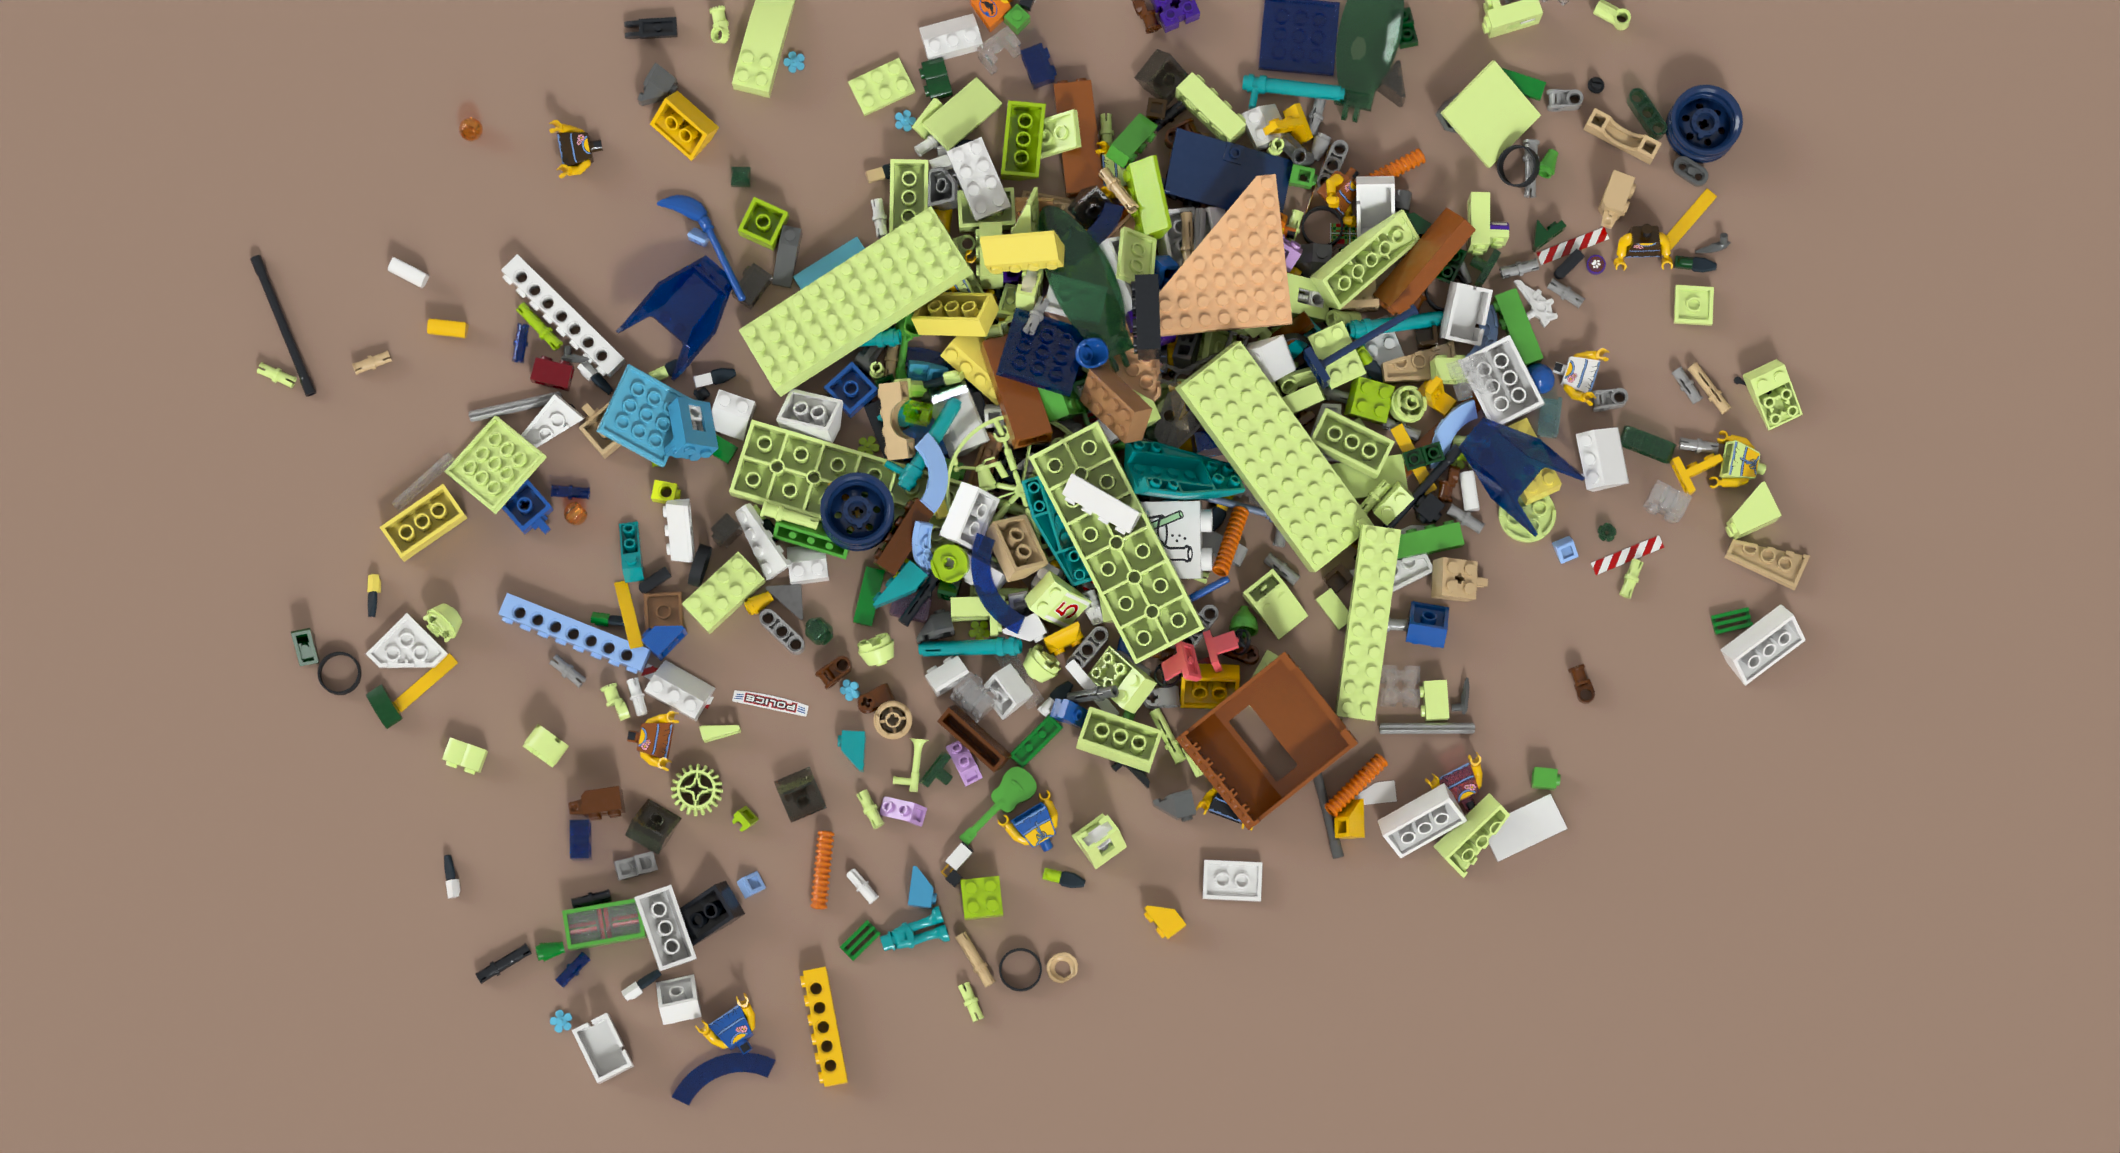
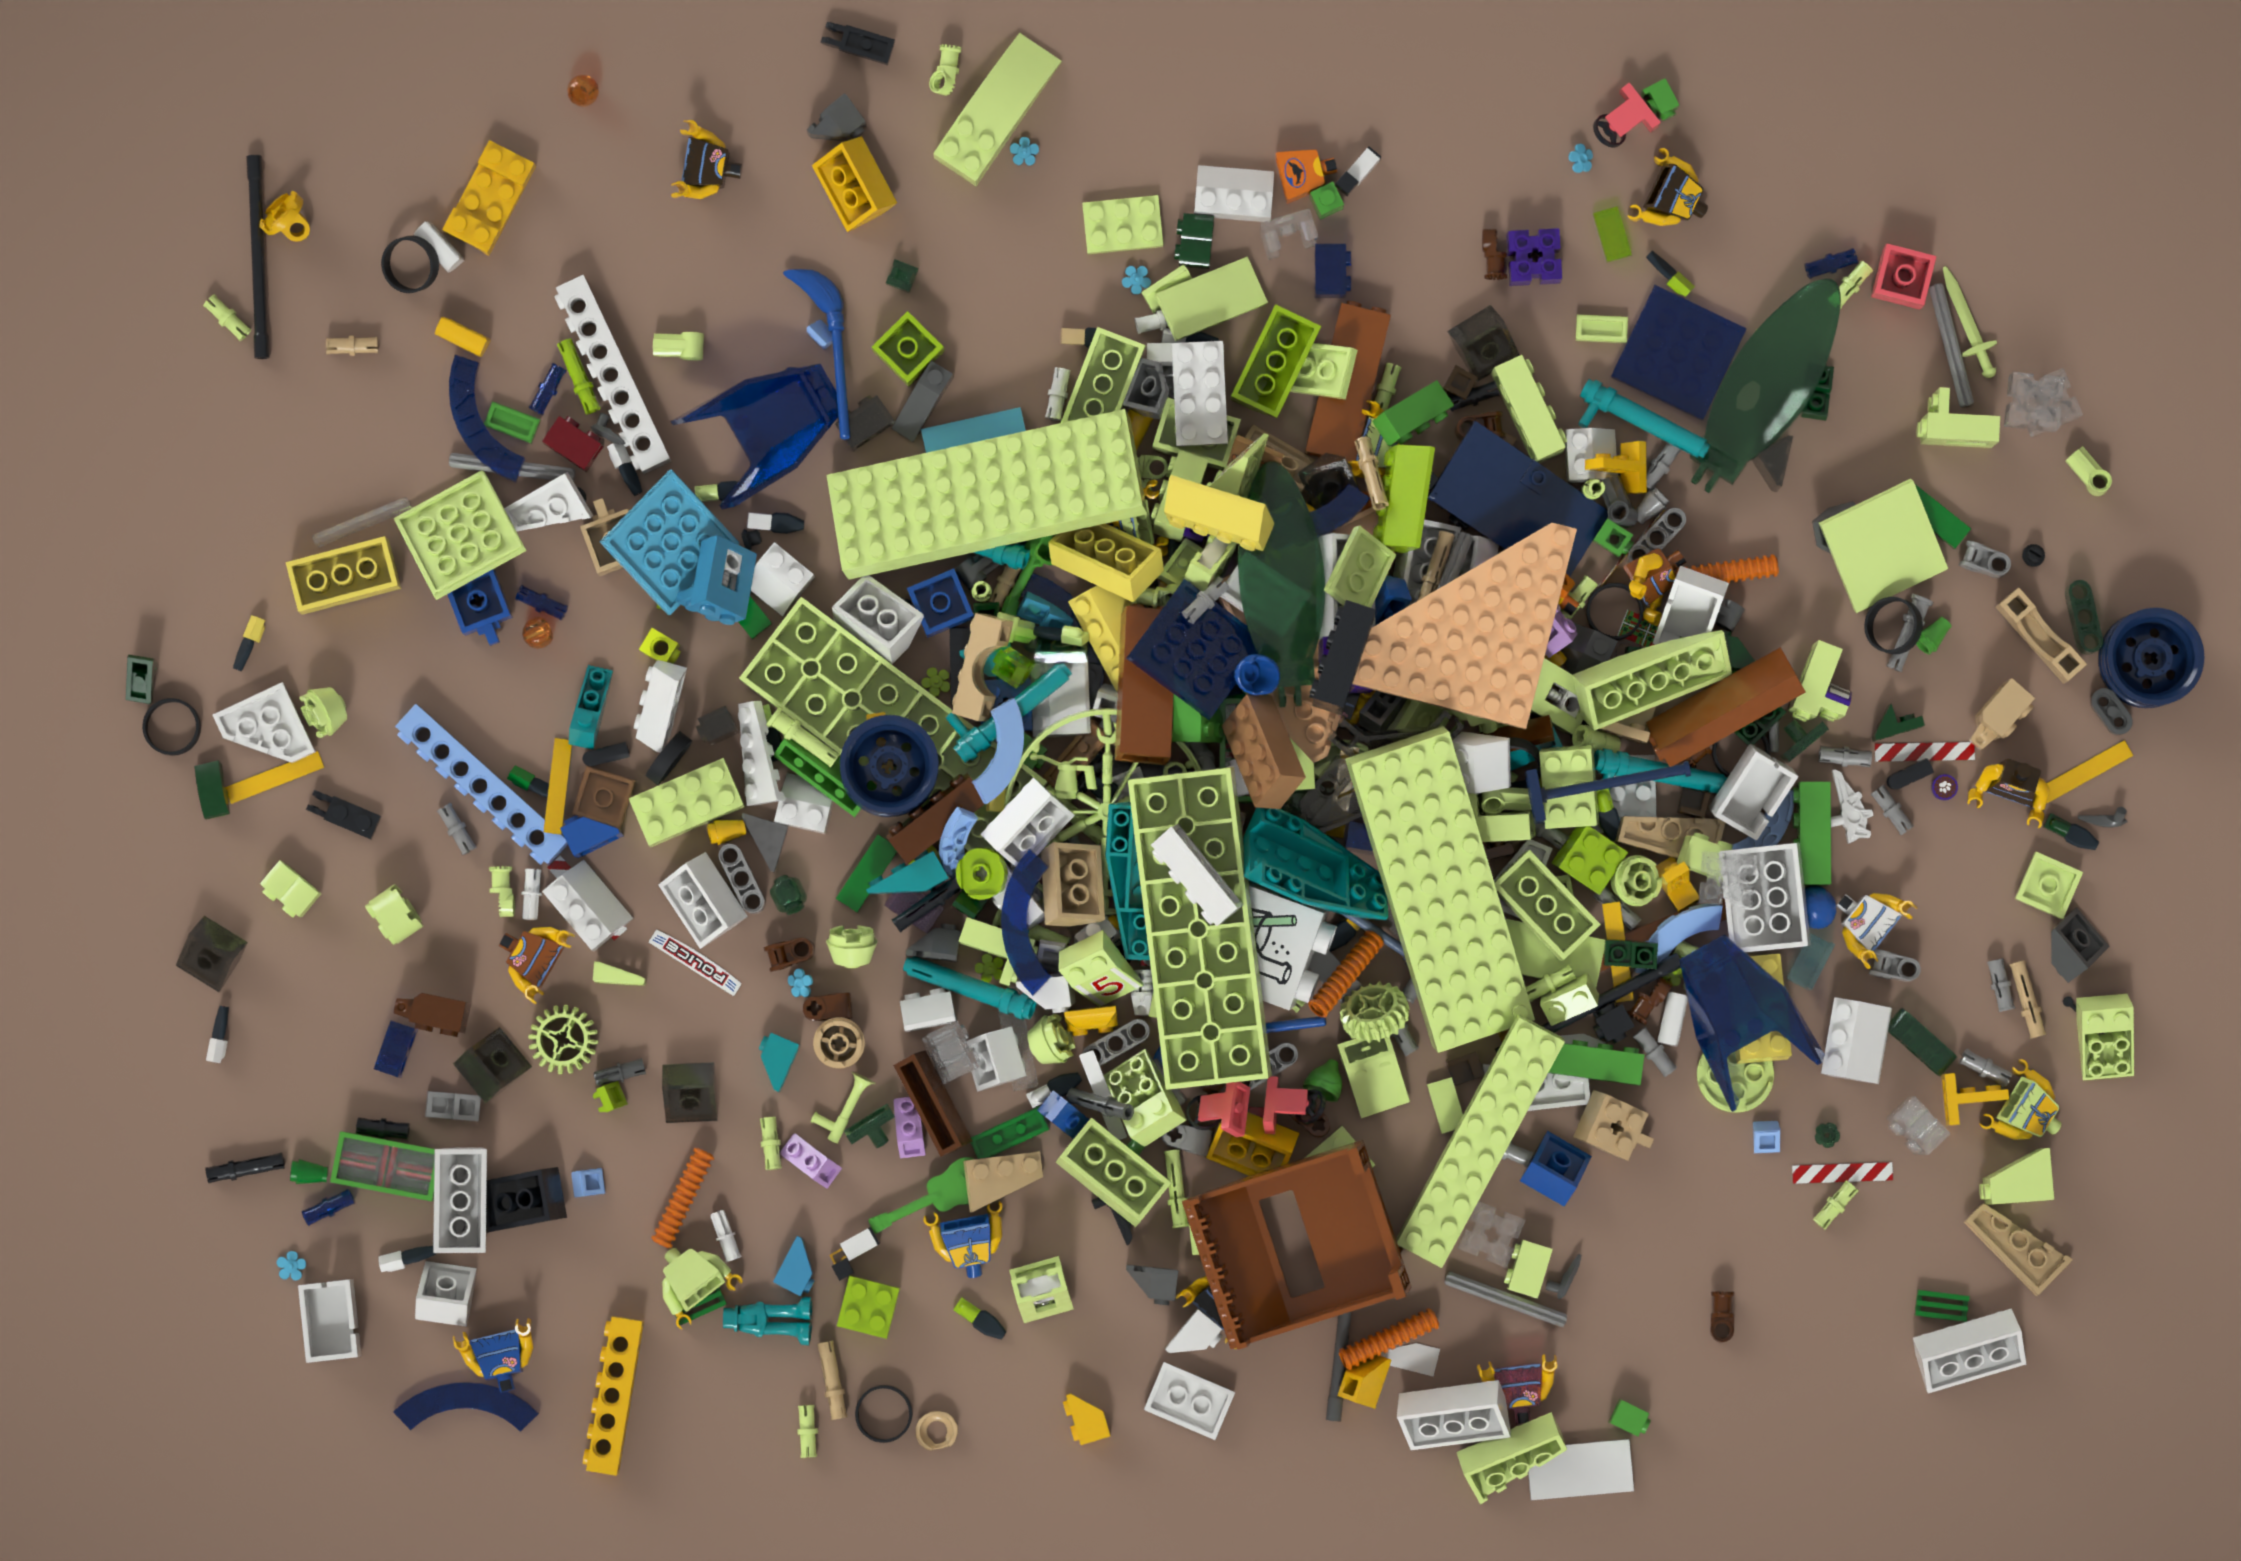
camera: 20 degrees right, 5 degrees up
(291, 288) = (283, 214): none -> yellow tile
(379, 304) = (386, 268): none -> black tyre
(424, 821) = (211, 953): none -> clear smoke slope
(432, 225) = (489, 197): none -> yellow piece
(477, 388) = (470, 425): none -> clear blue tile
(486, 690) = (347, 815): none -> black hinge
(504, 375) = (512, 422): none -> bright green tile
(606, 278) = (684, 345): none -> yellowish green piece
(745, 798) = (619, 1072): none -> dark grey axle
(759, 656) = (702, 900): none -> white slope
(850, 923) = (692, 1278): none -> yellowish green torso
(1040, 772) = (998, 1176): none -> tan wing
(1220, 830) = (1195, 1334): none -> white slope
(1239, 38) = (1601, 328): none -> yellowish green tile
(1260, 560) = (1374, 1012): none -> yellowish green gear
(1728, 339) = (2075, 945): none -> dark grey slope

